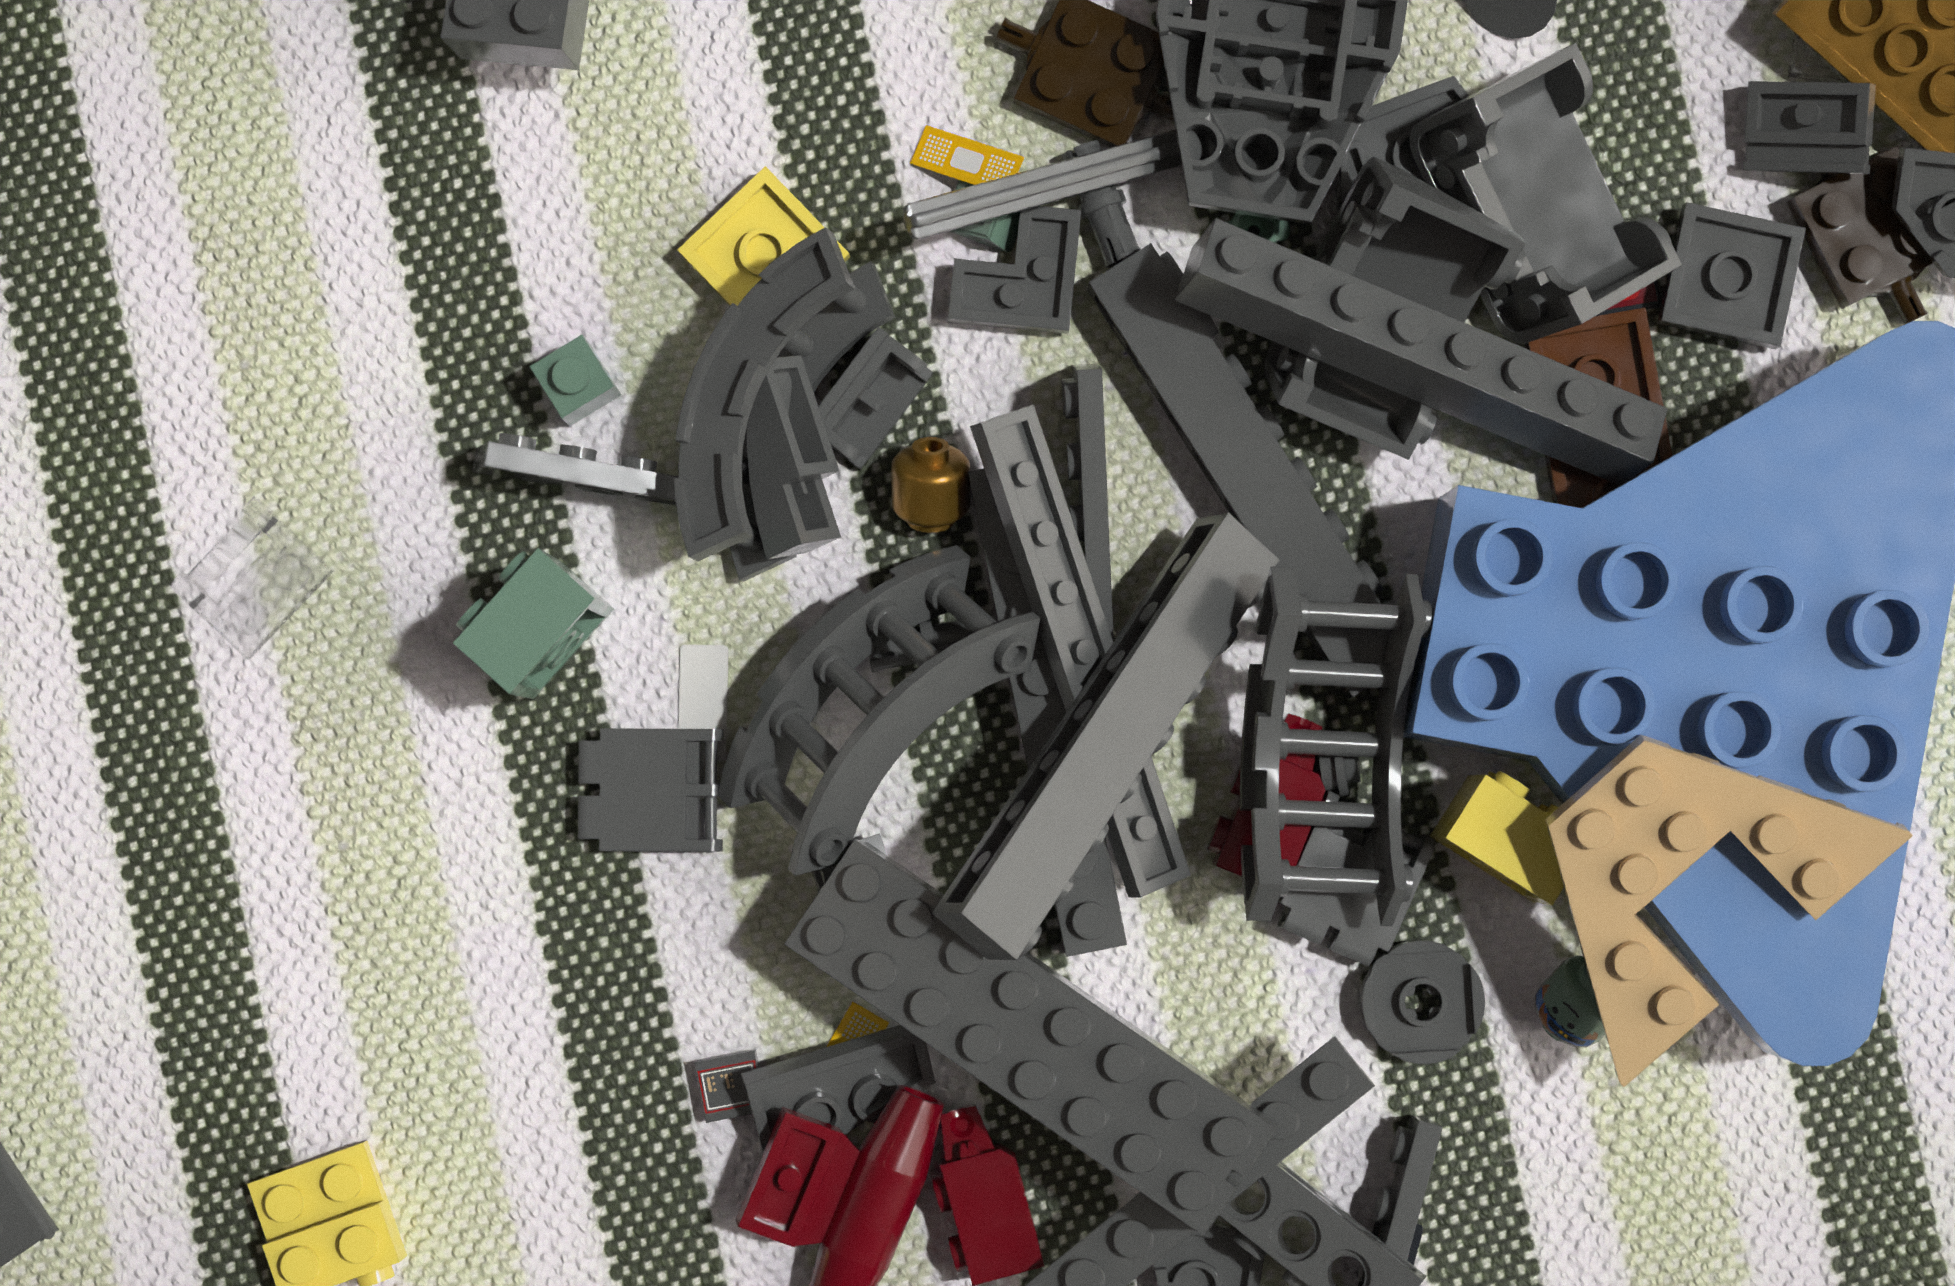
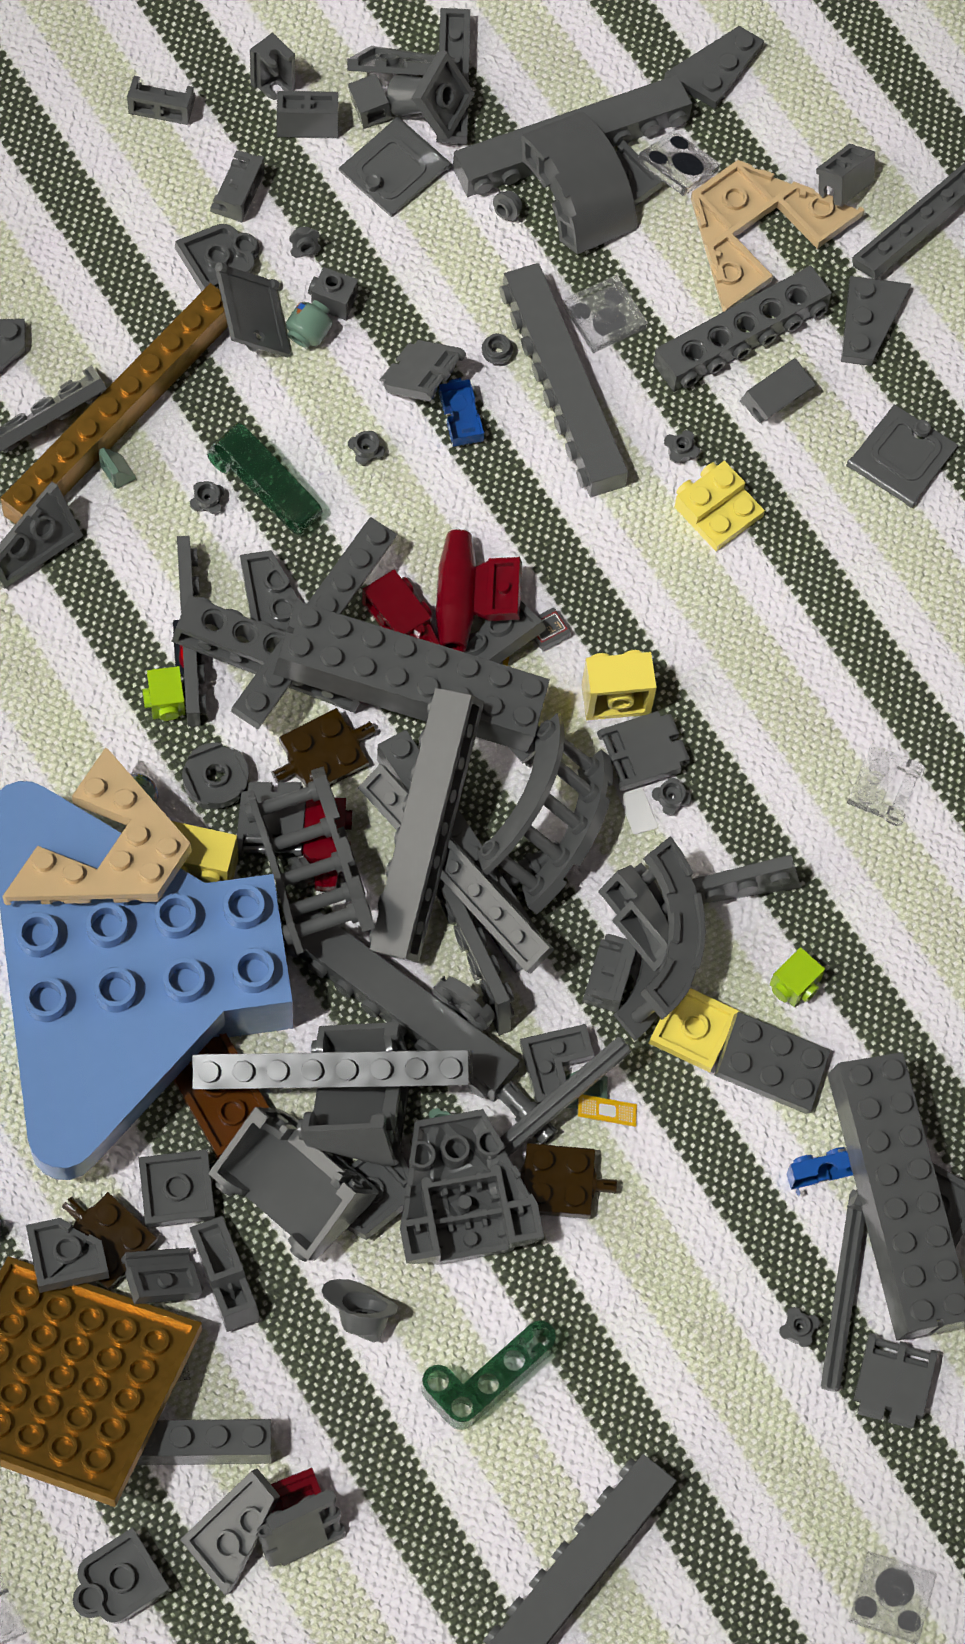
camera: 155 degrees right, 20 degrees down
(531, 623) = (735, 794): sand green brick -> none
(555, 274) = (797, 978): none -> lime brick
(575, 380) = (764, 929): sand green brick -> none
(627, 704) = (673, 787): none -> dark grey plate
(653, 916) = (618, 685): none -> light yellow brick
(657, 142) = (772, 1062): none -> dark grey plate
(930, 485) = (564, 935): pearl gold head -> none
(1139, 405) = (463, 1002): none -> dark grey plate
(1215, 984) = (325, 743): none -> dark brown plate
(1463, 1188) = (164, 693): none -> lime brick
(1699, 105) = (224, 1274): none -> dark grey slope

